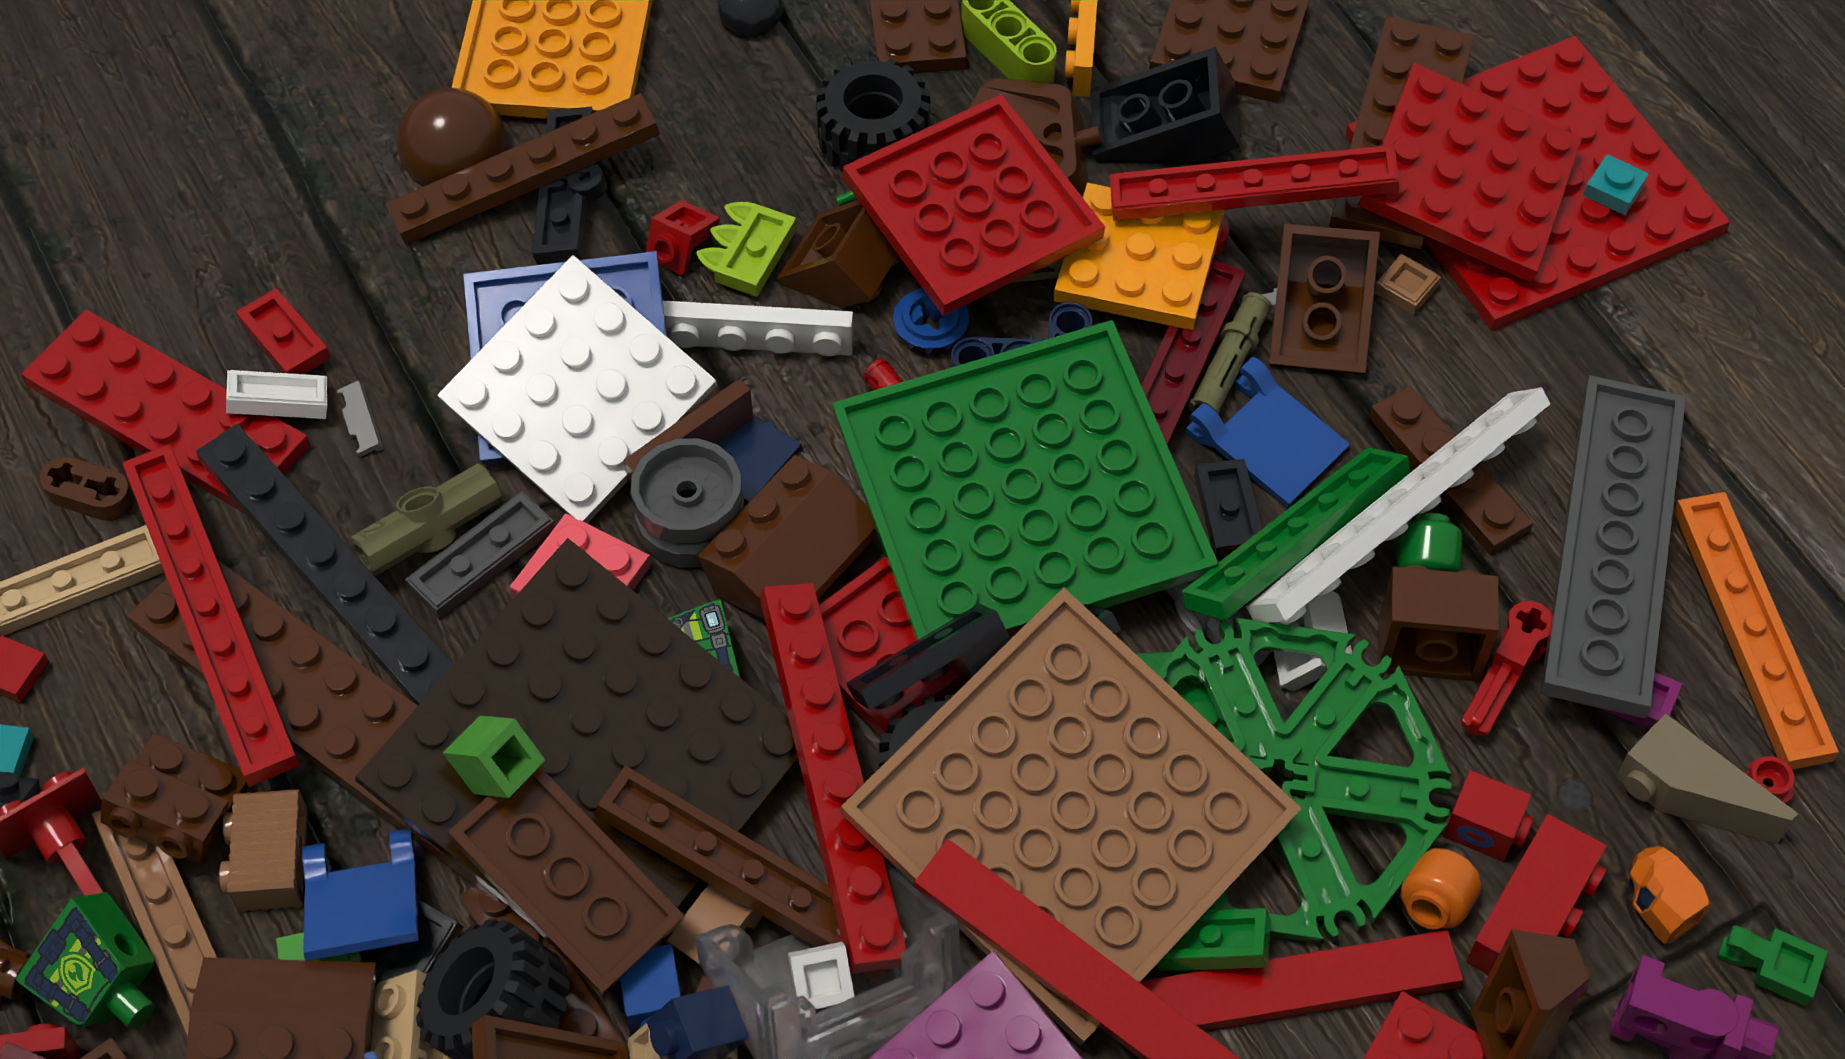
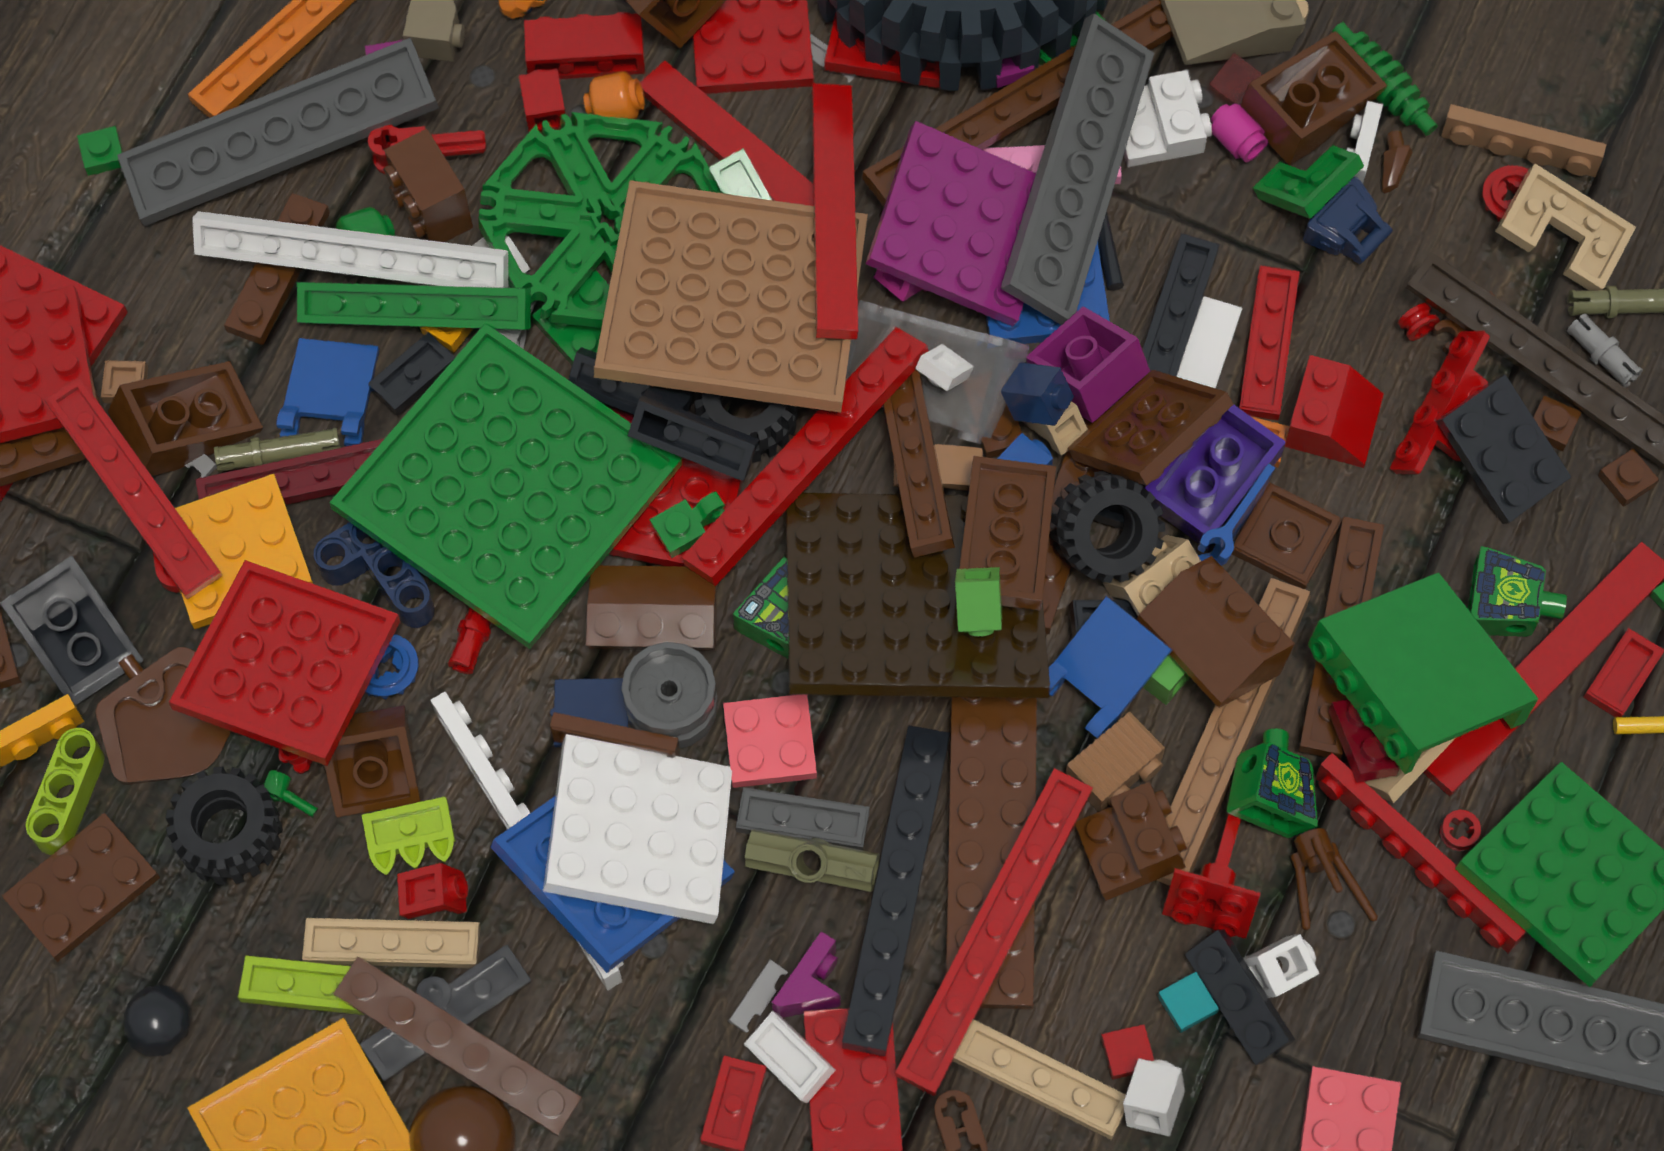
camera: 125 degrees left, 10 degrees up
(319, 448) = (802, 989): none -> magenta slope
(677, 178) = (392, 942): none -> tan tile
(689, 106) = (293, 984): none -> lime plate
(854, 621) = (682, 526): none -> green plate
(1708, 397) = (100, 150): none -> green plate

